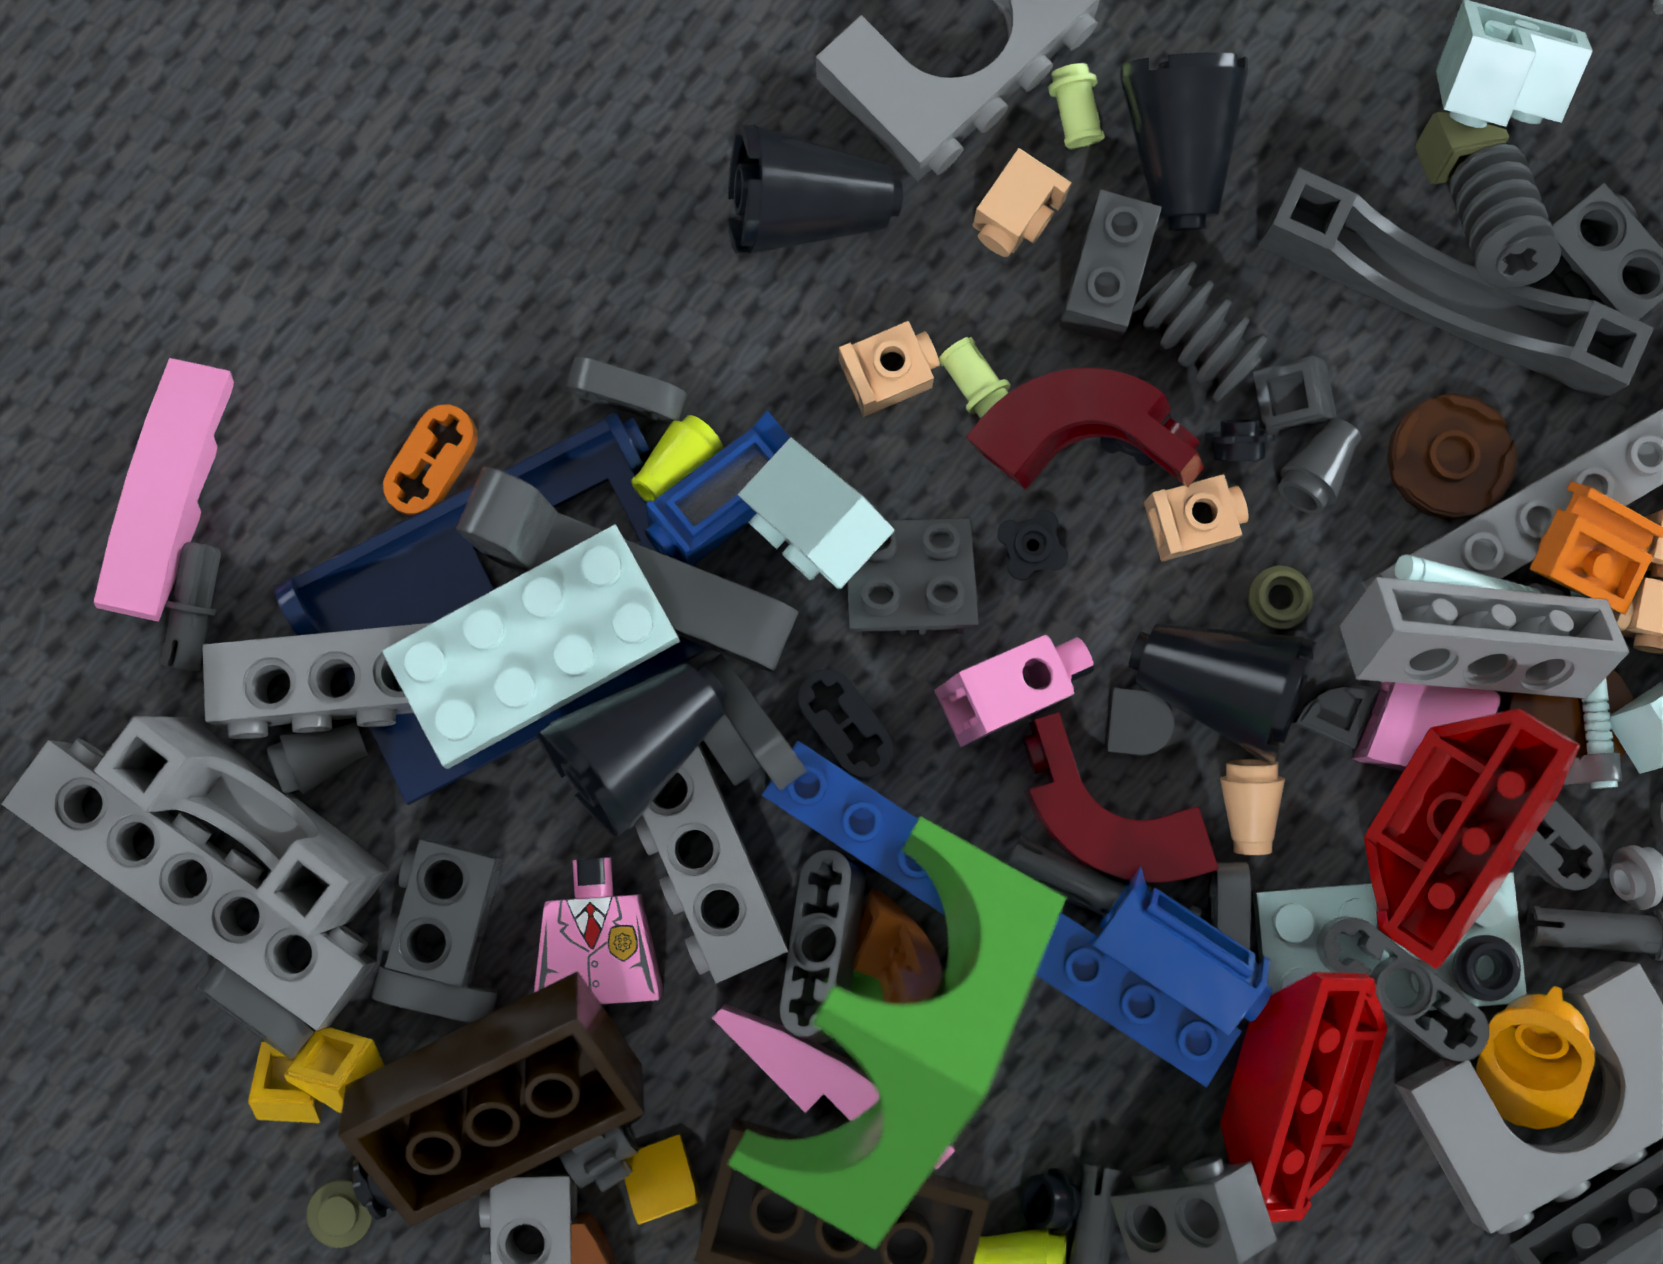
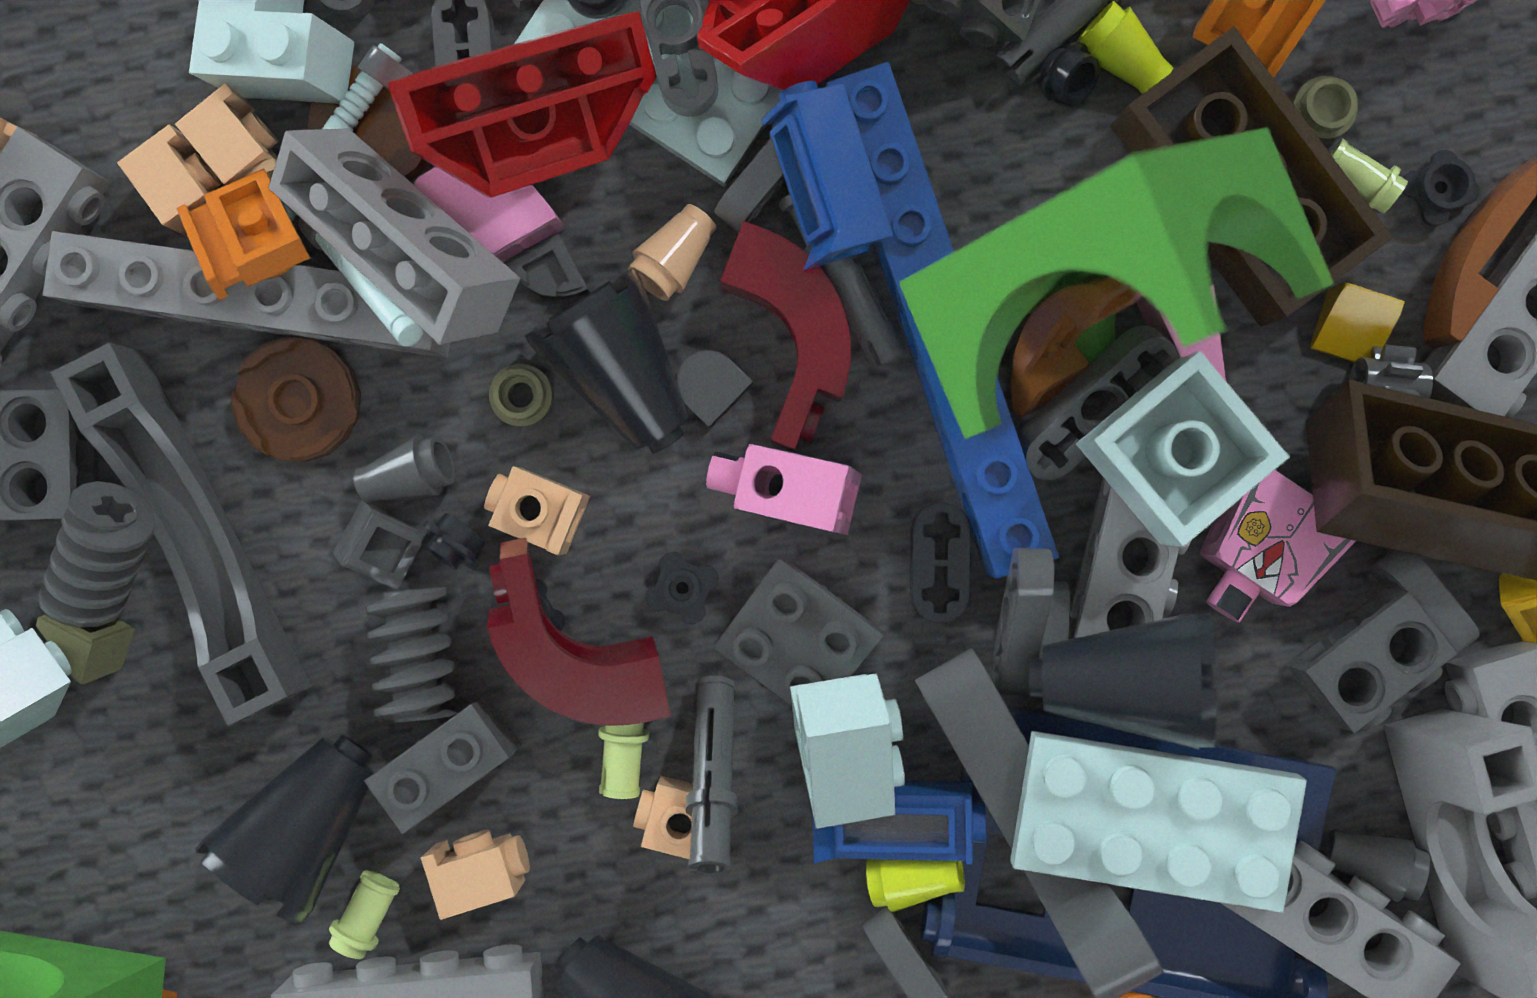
camera: 145 degrees left, 5 degrees up
(736, 950) = (1182, 450): none -> light aqua brick
(886, 398) = (712, 798): none -> dark grey pin

